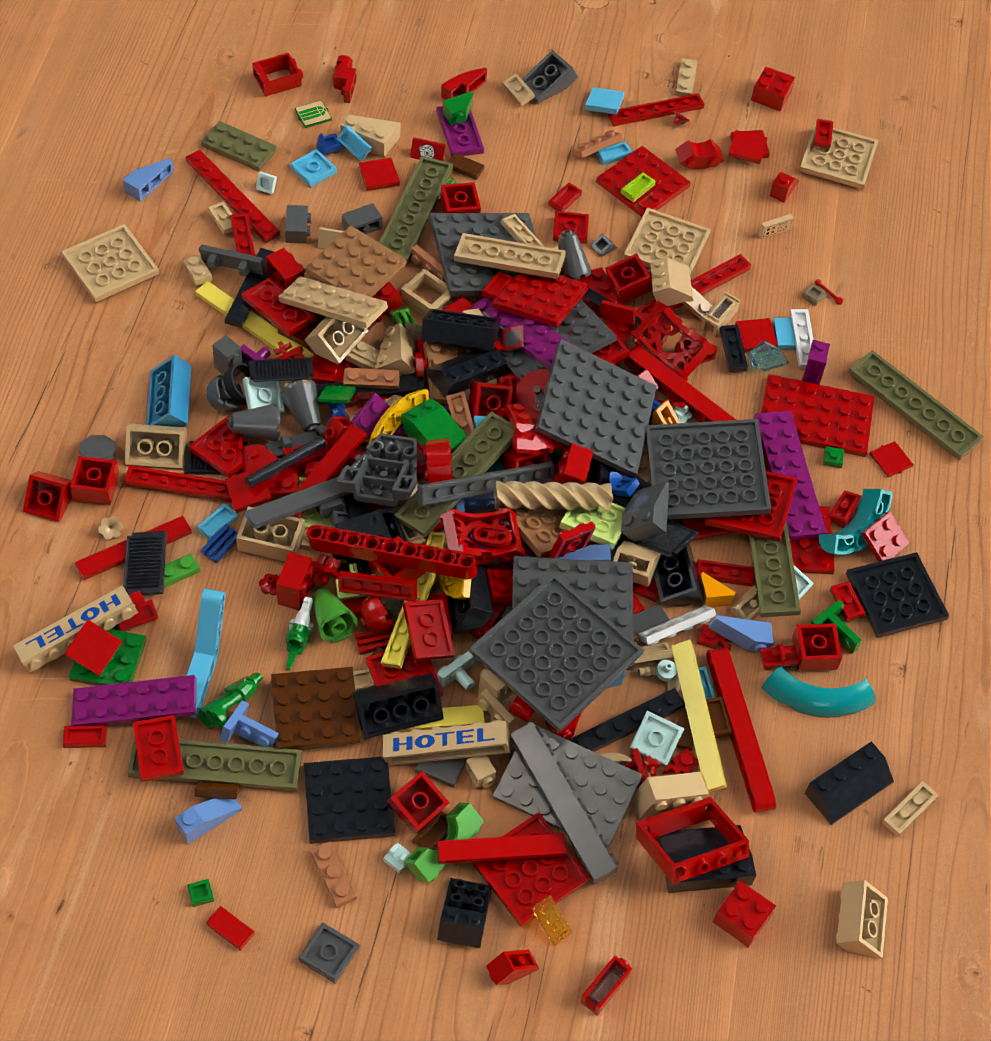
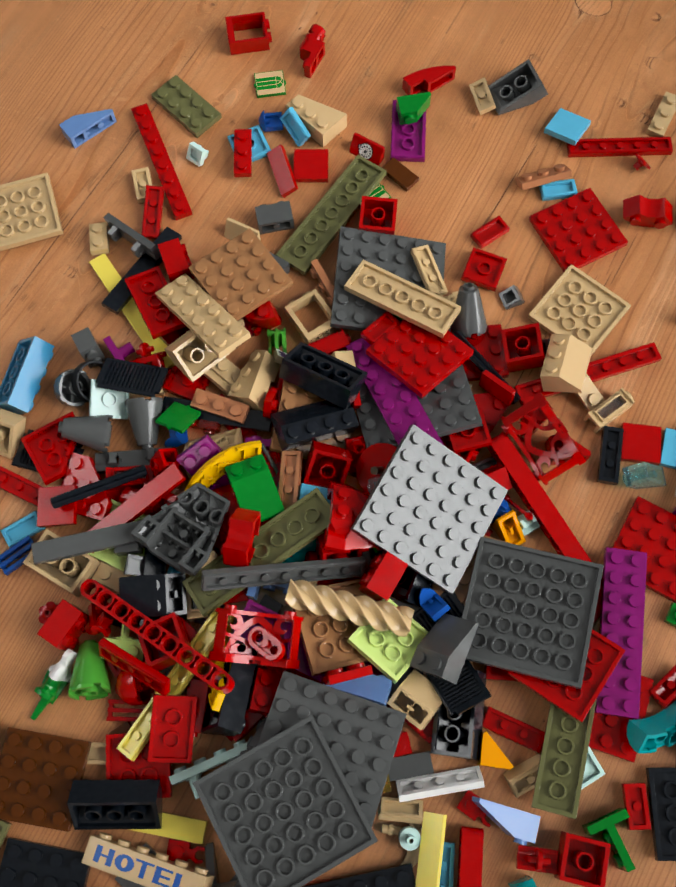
camera: 25 degrees right, 15 degrees up
(297, 224) = (210, 207): dark grey brick -> none
(311, 174) = (242, 153): none -> red plate
(354, 182) = (282, 171): none -> red tile
(494, 707) = (215, 843): tan plate -> none
(511, 337) = (373, 395): piece -> none
(638, 187) = (568, 238): lime tile -> none

